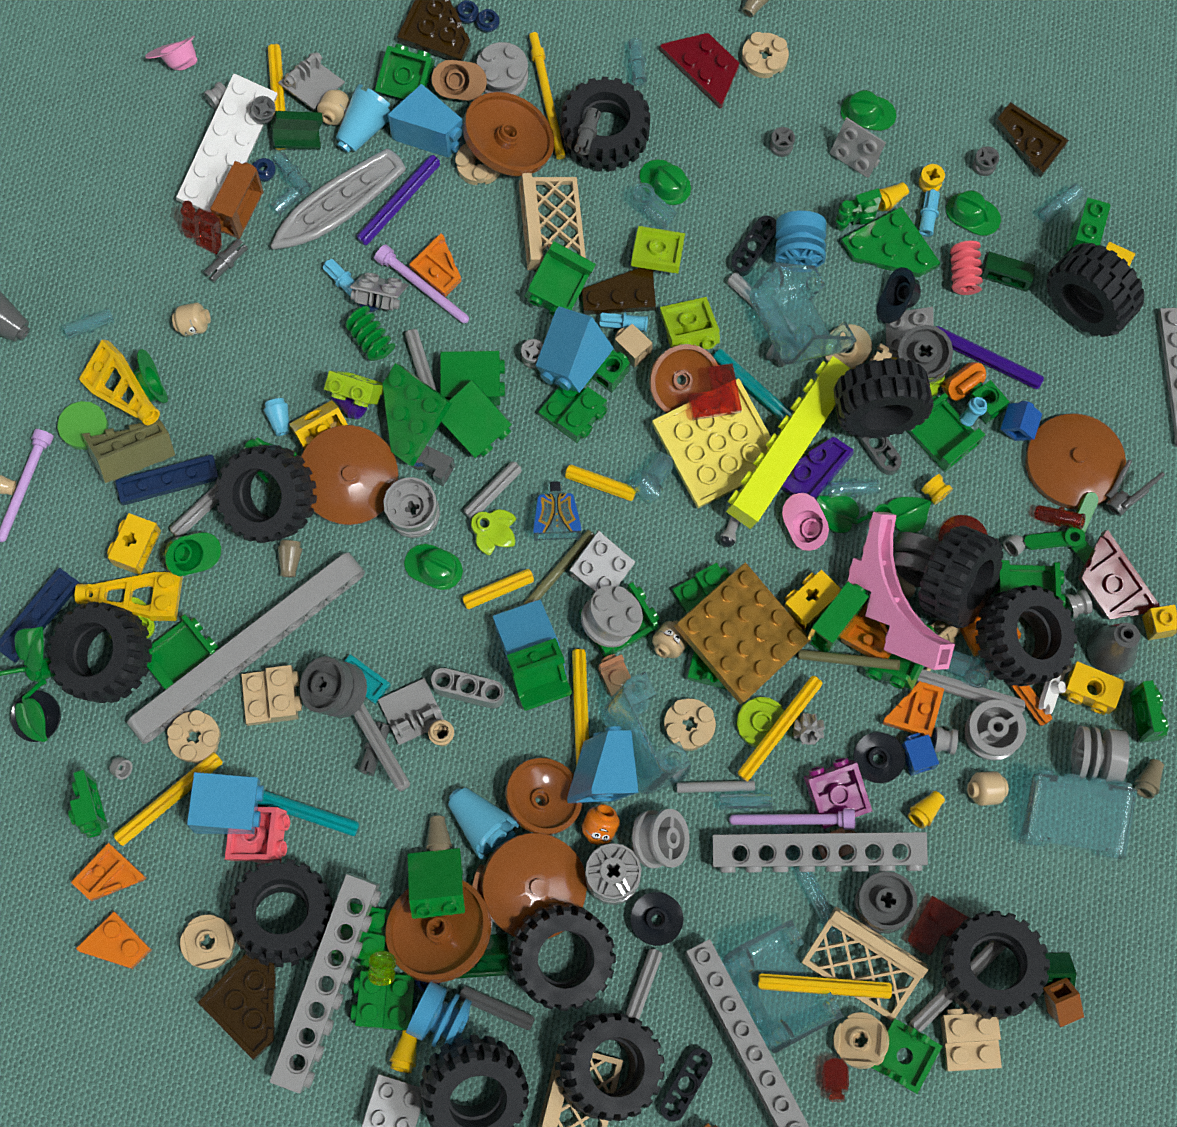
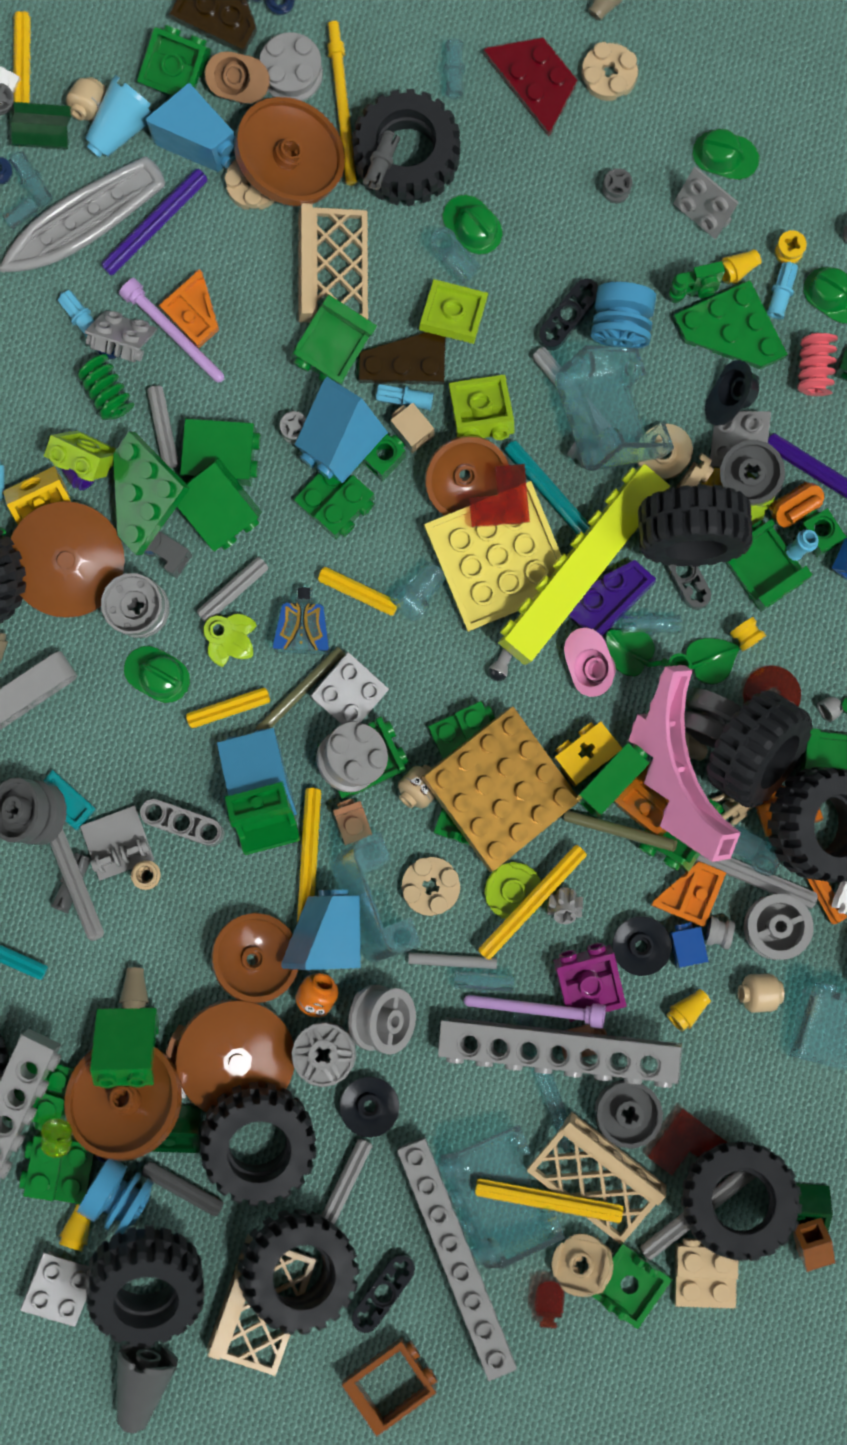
camera: 10 degrees right, 10 degrees up
(311, 80) = (62, 62): light grey hinge -> none
(481, 821) = (182, 979): medium azure cone -> none

